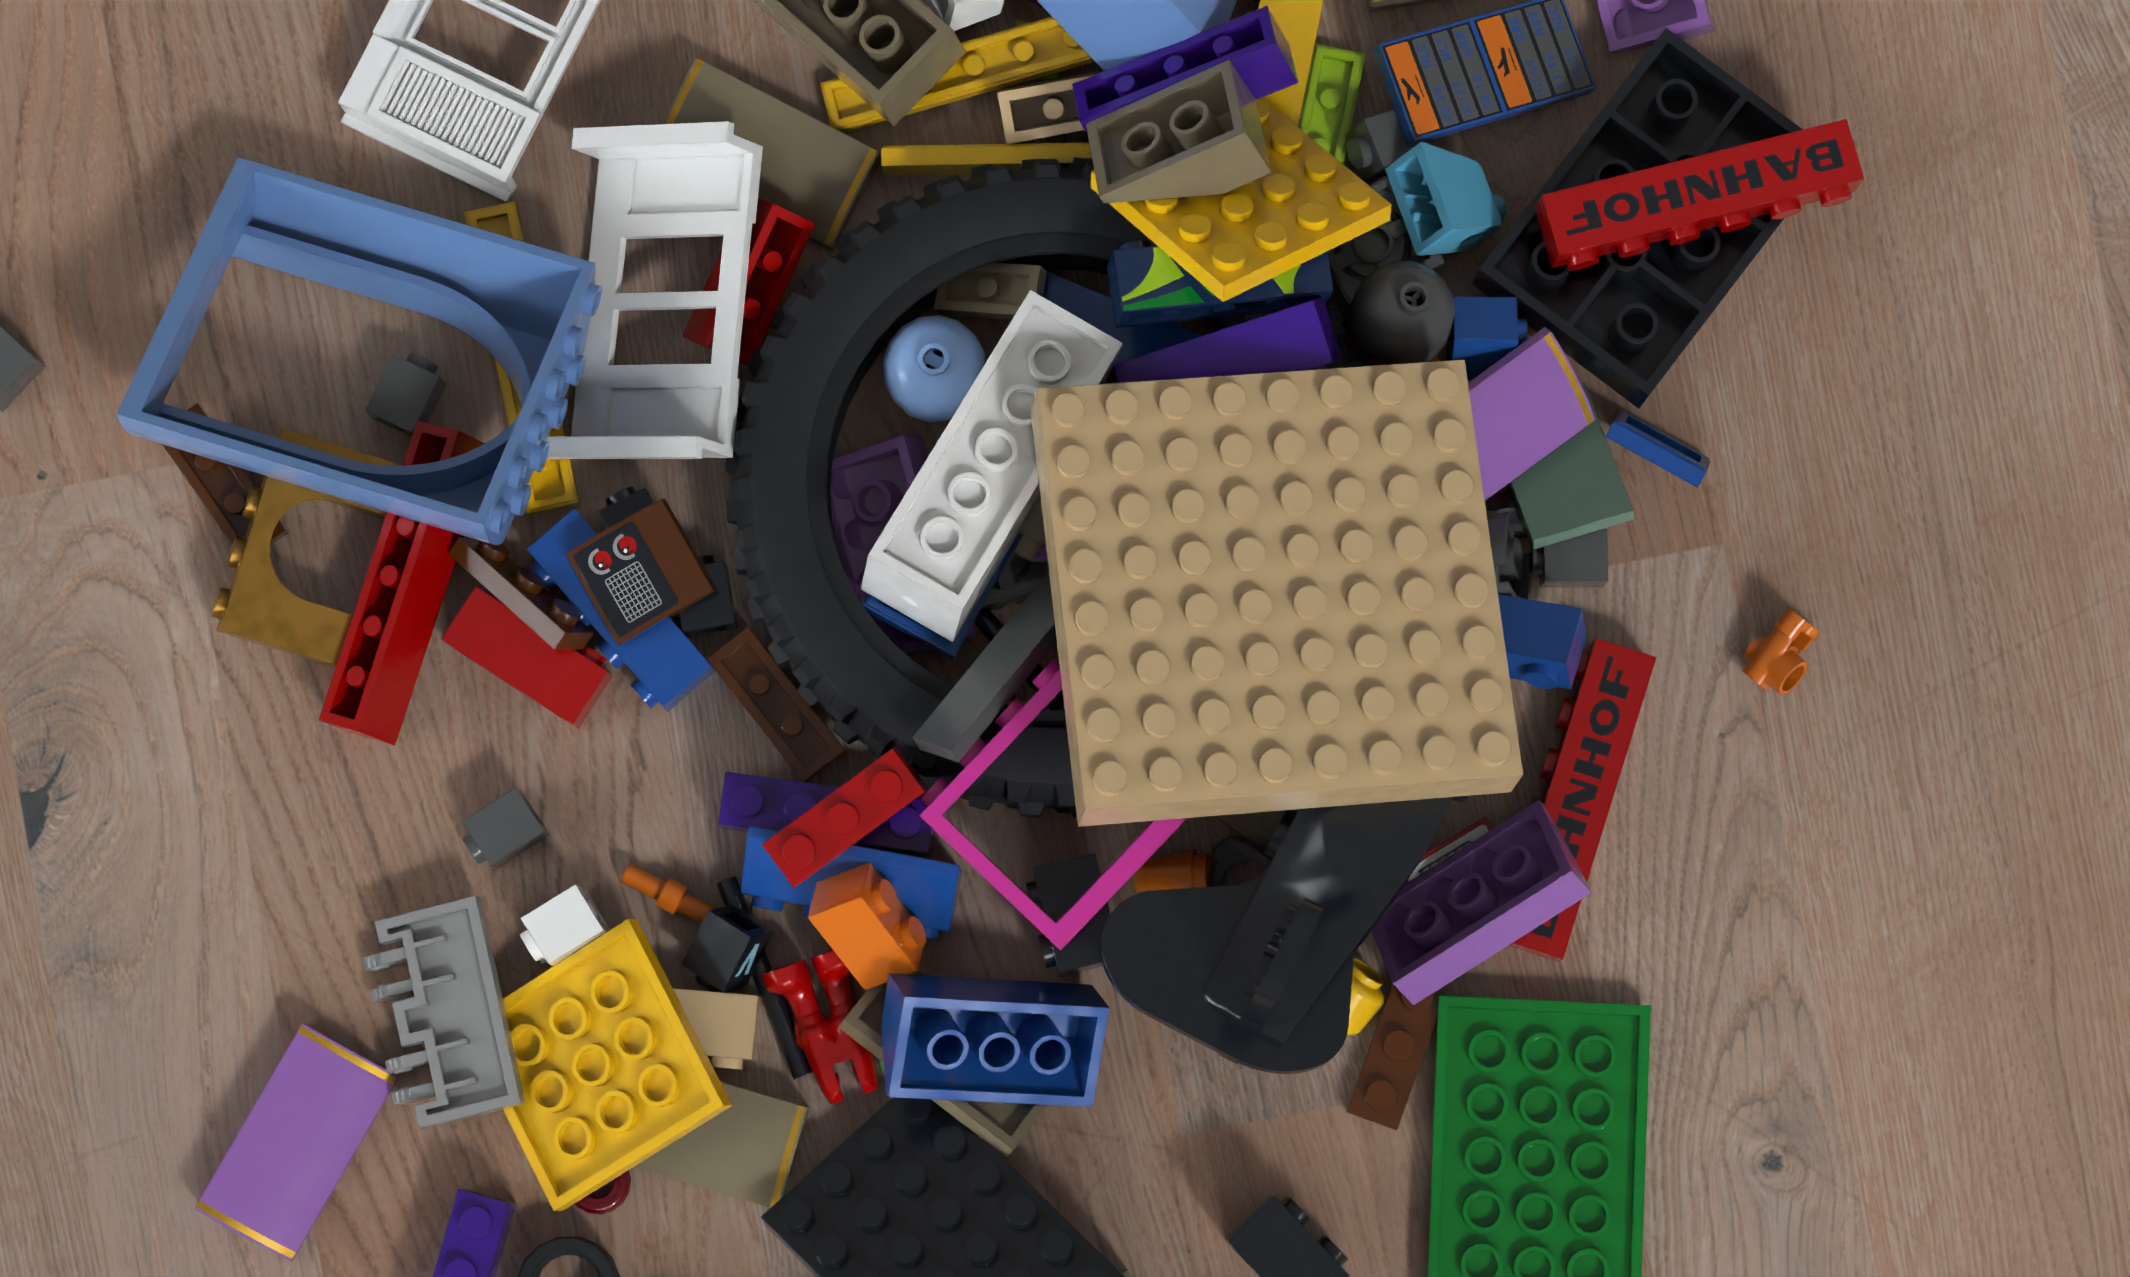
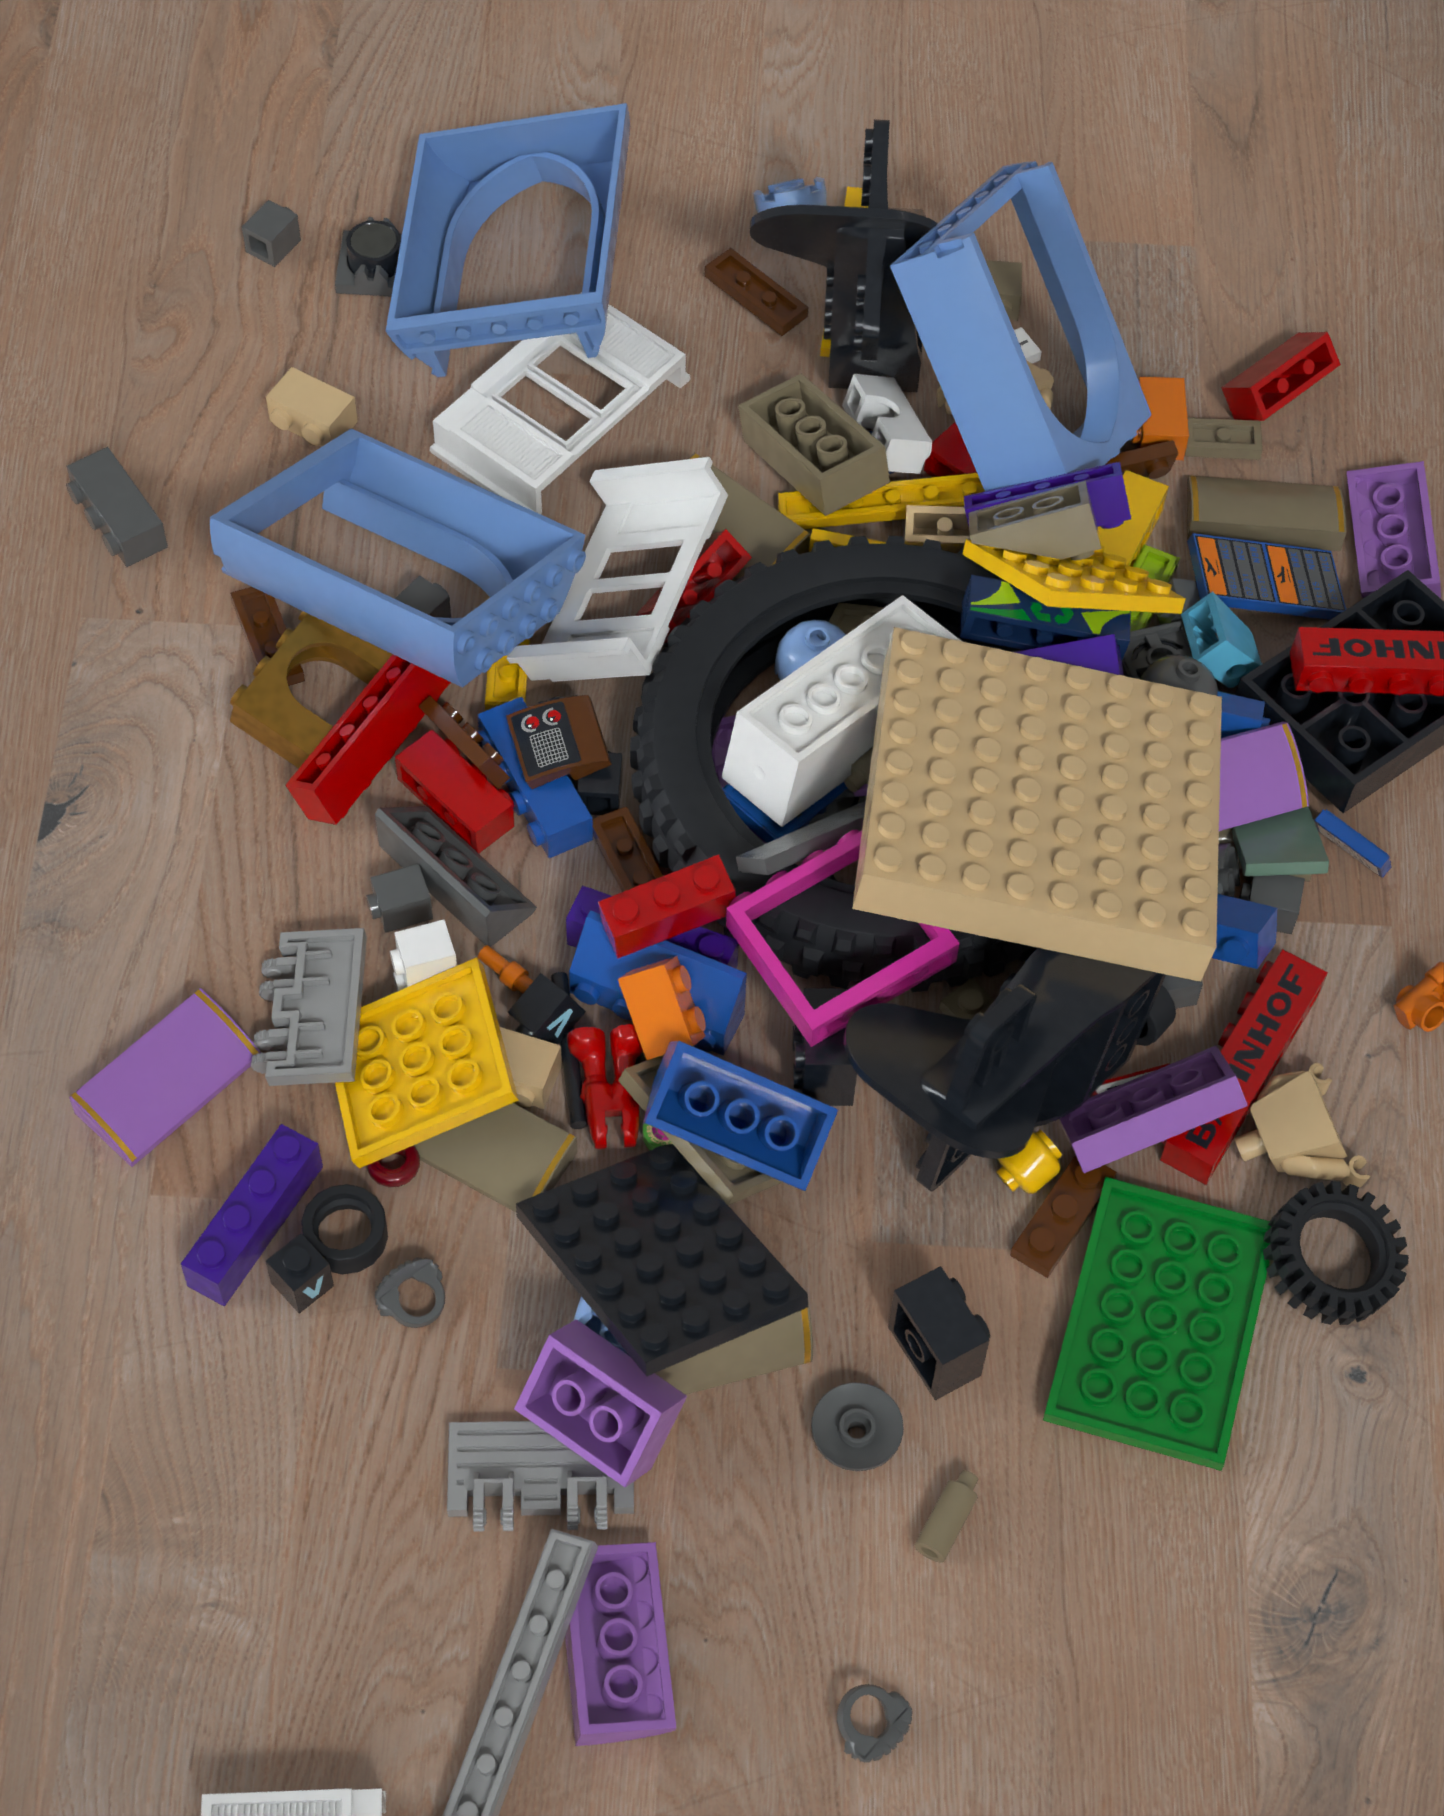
camera: 10 degrees right, 25 degrees down
(167, 109) = (310, 408): none -> tan brick
(560, 766) = (453, 871): none -> dark grey slope
(1654, 875) = (1299, 1130): none -> tan torso
(1782, 1026) = (1306, 1287): none -> black tyre

